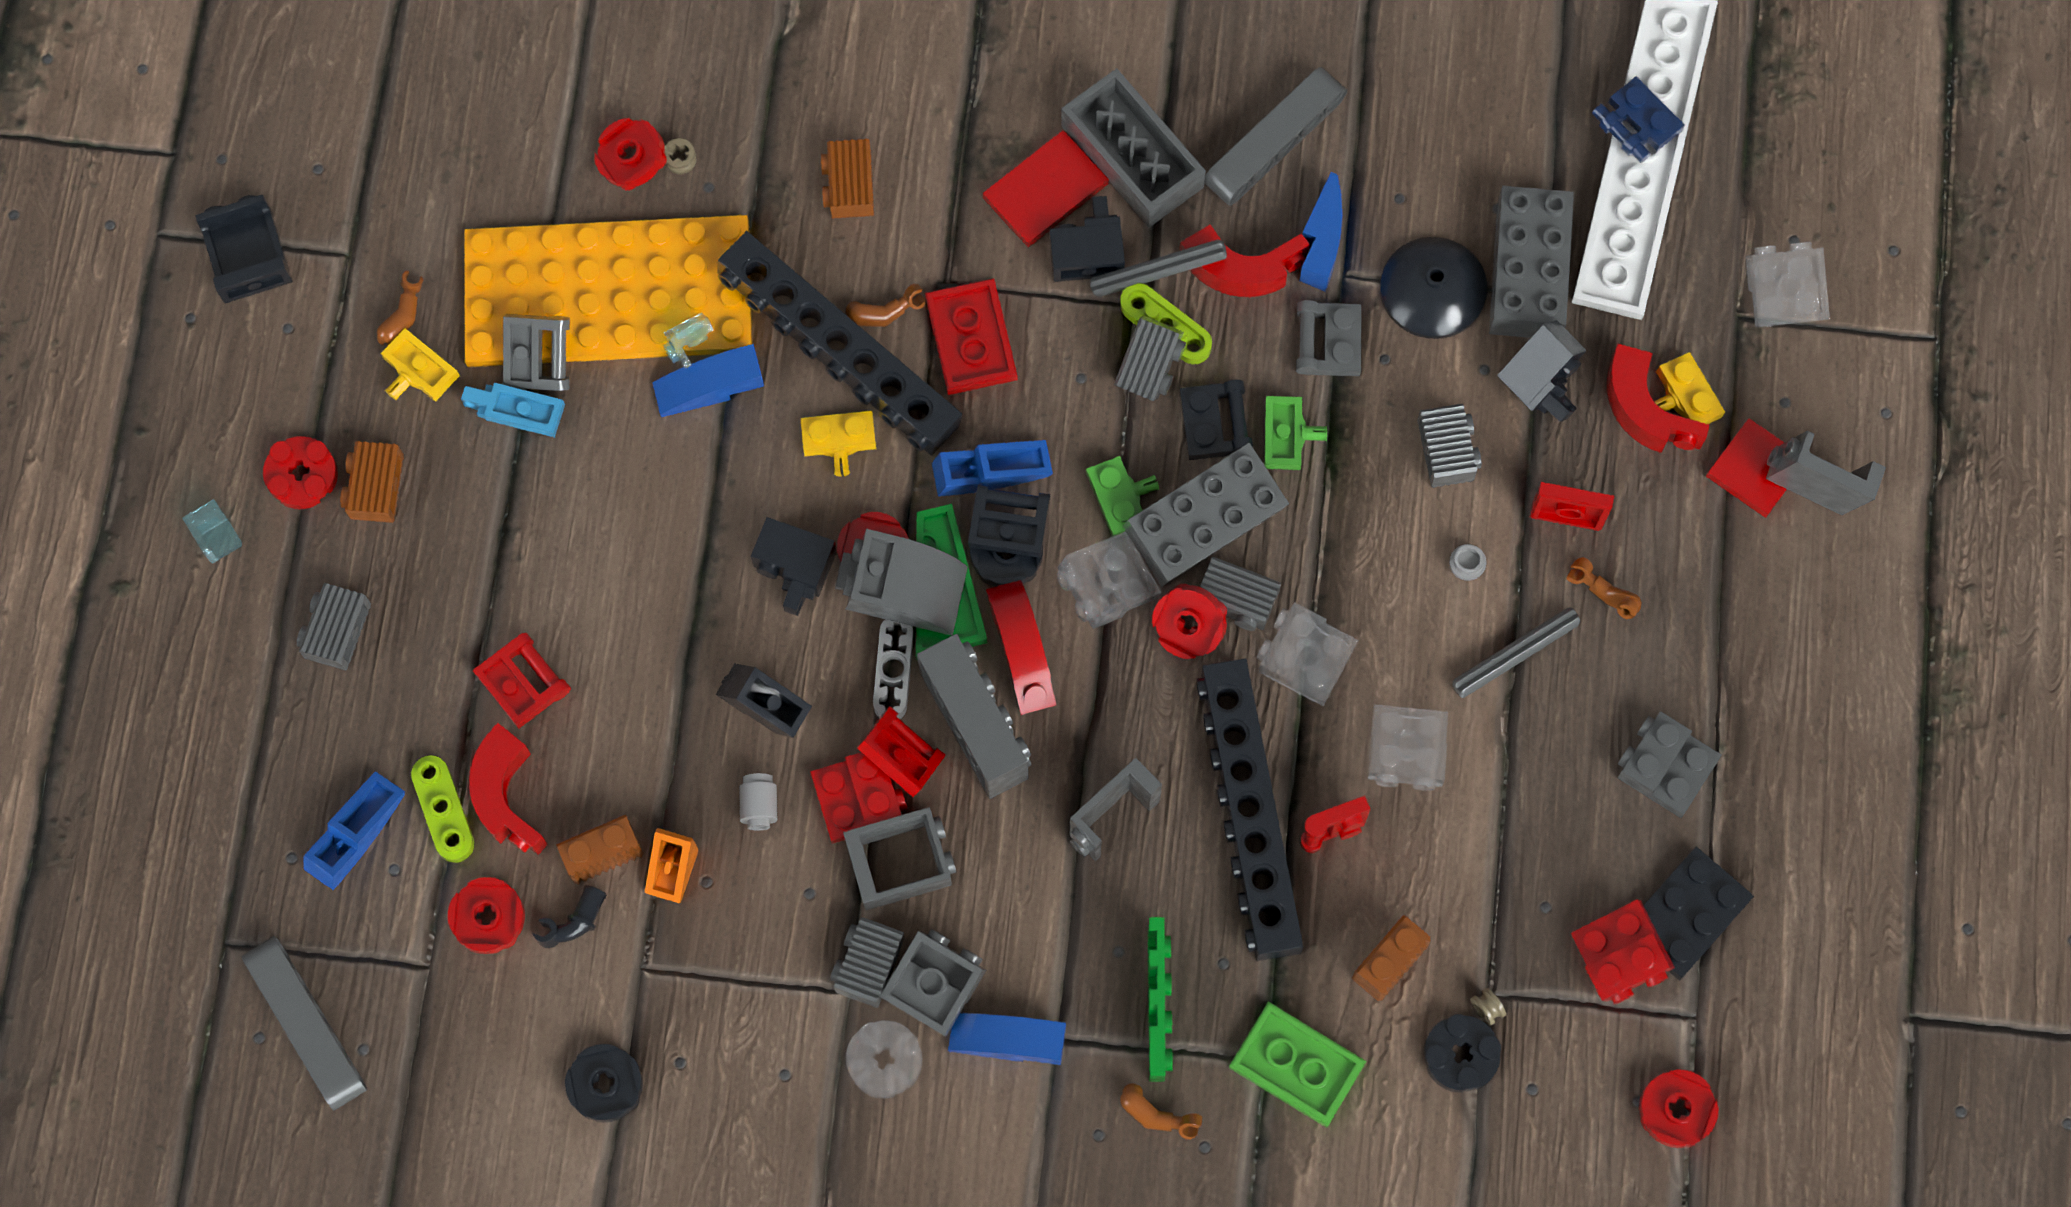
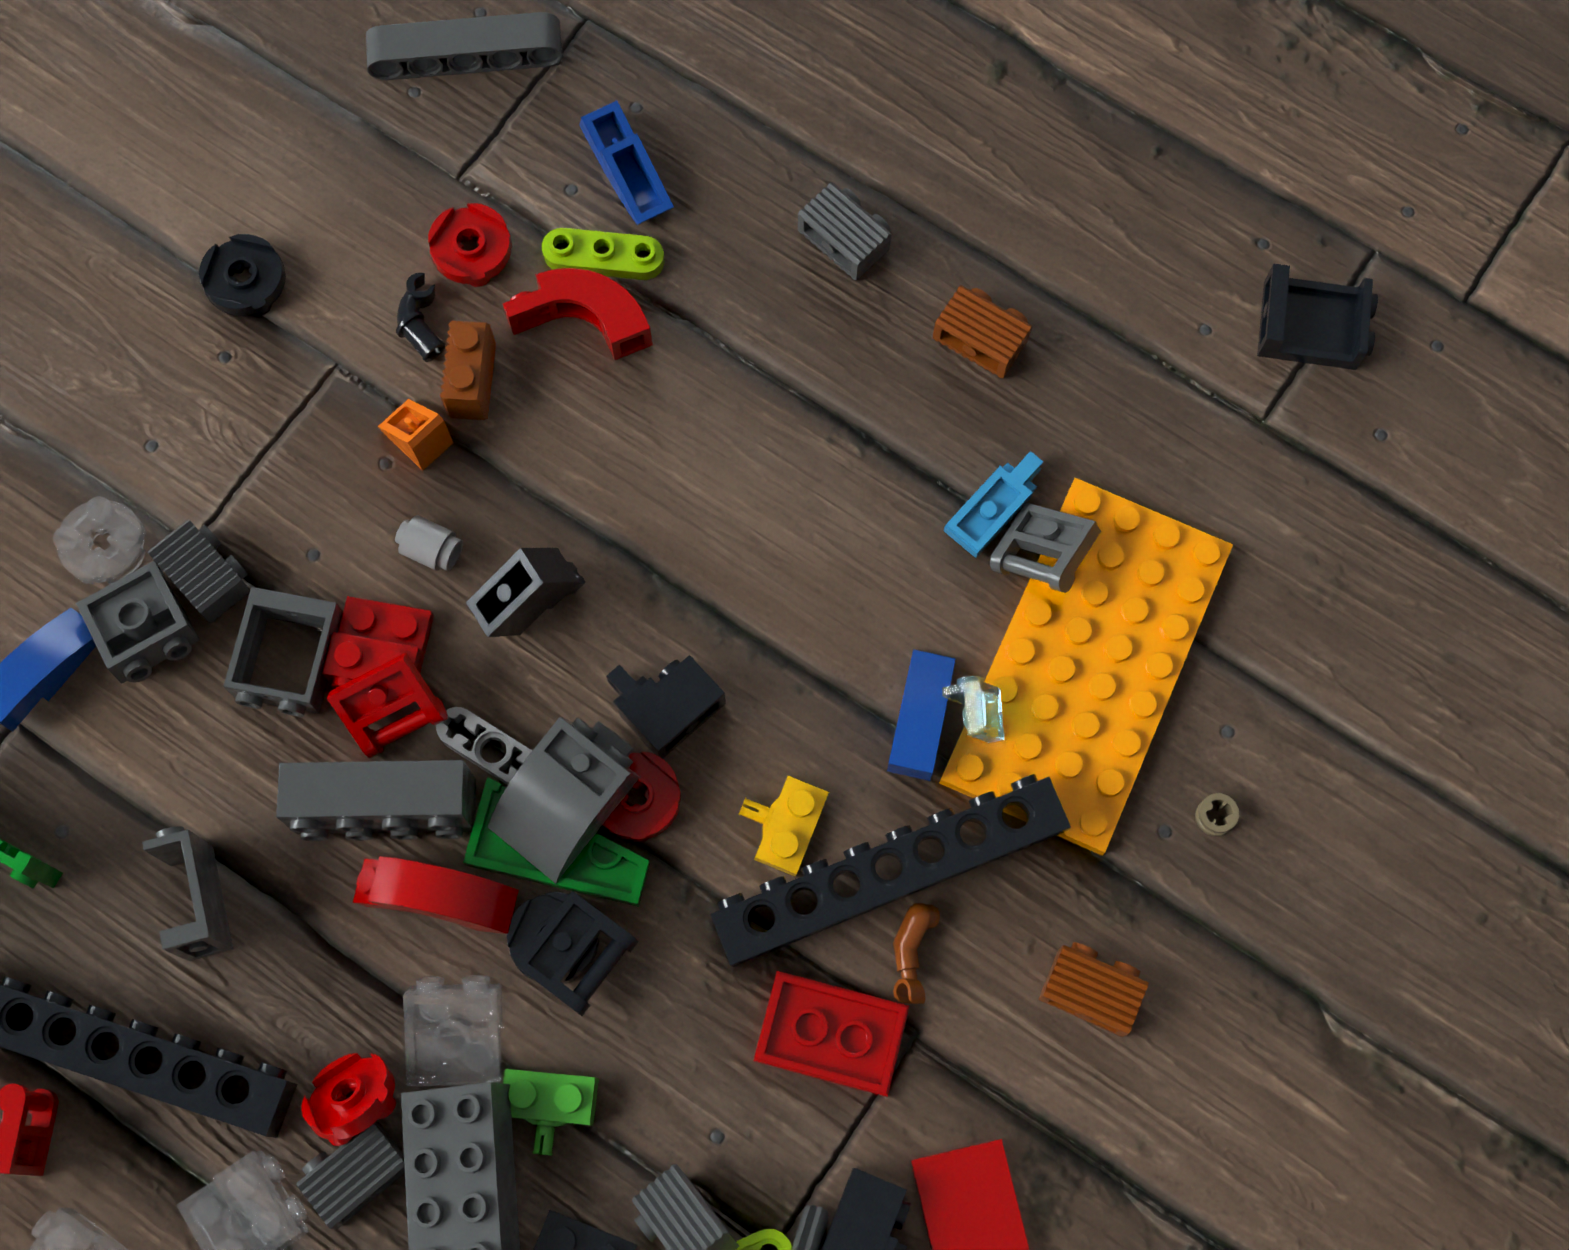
camera: 115 degrees right, 0 degrees up
(212, 531) = (1008, 163): clear light blue panel -> none
(285, 458) = (1030, 250): red plate -> none
(404, 315) = (1157, 439): dark orange arm -> none
(417, 367) = (1092, 428): yellow plate -> none
(512, 688) = (691, 366): red plate -> none
(640, 167) = (1229, 776): red plate -> none
(991, 465) = (658, 973): blue slope -> none

